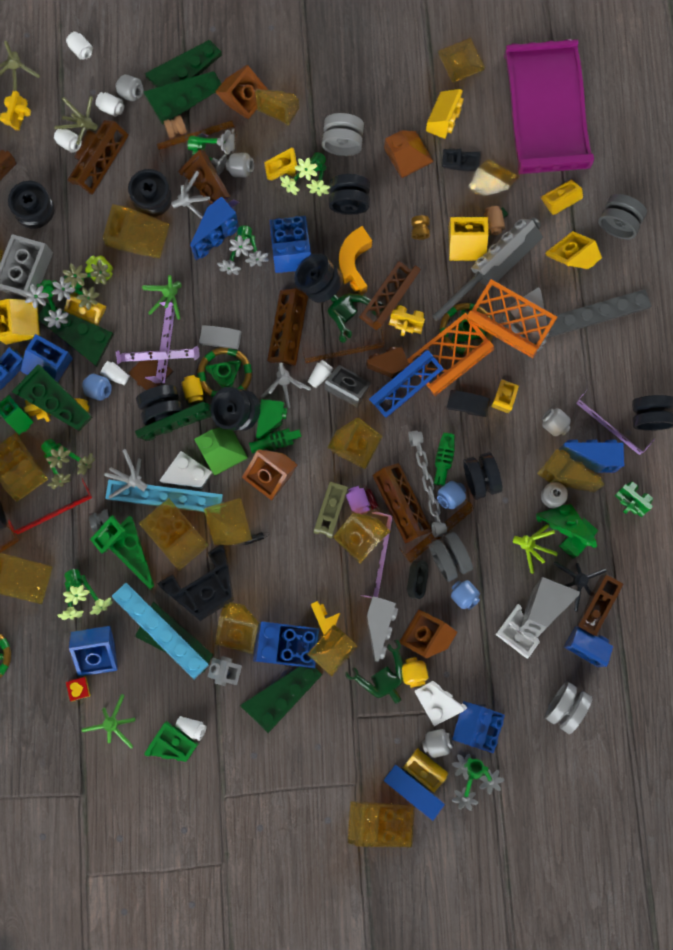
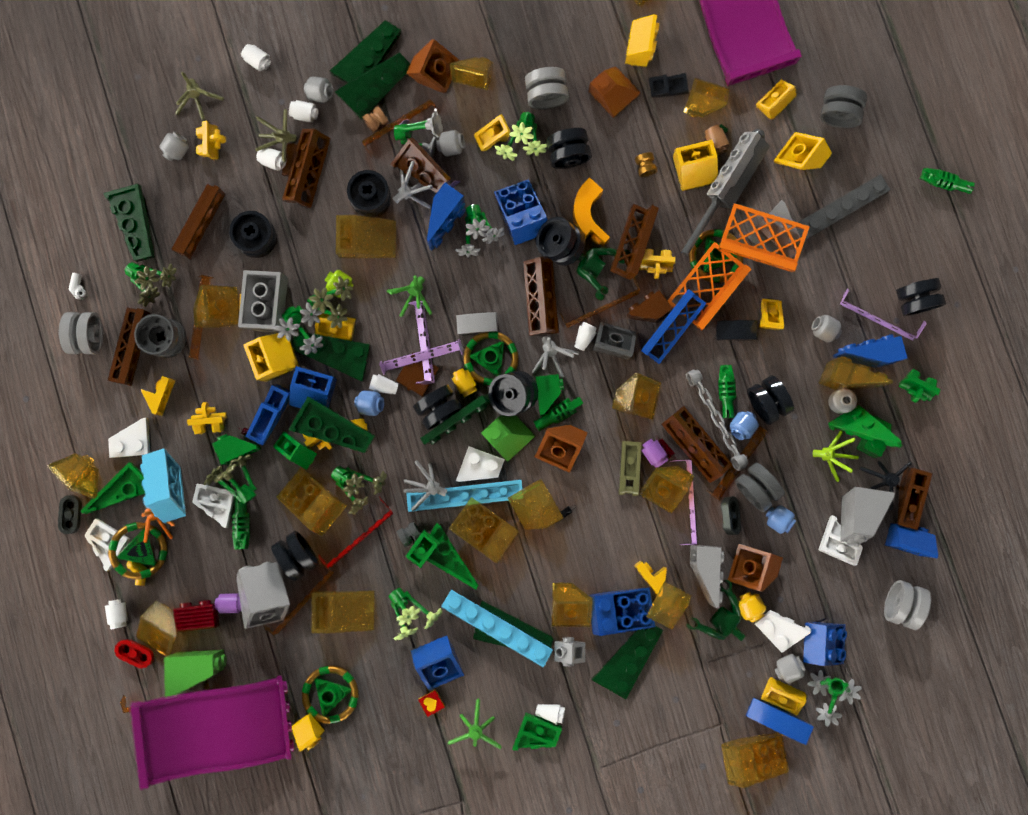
camera: 15 degrees left, 5 degrees up
(206, 593) = (533, 580): black wing -> none

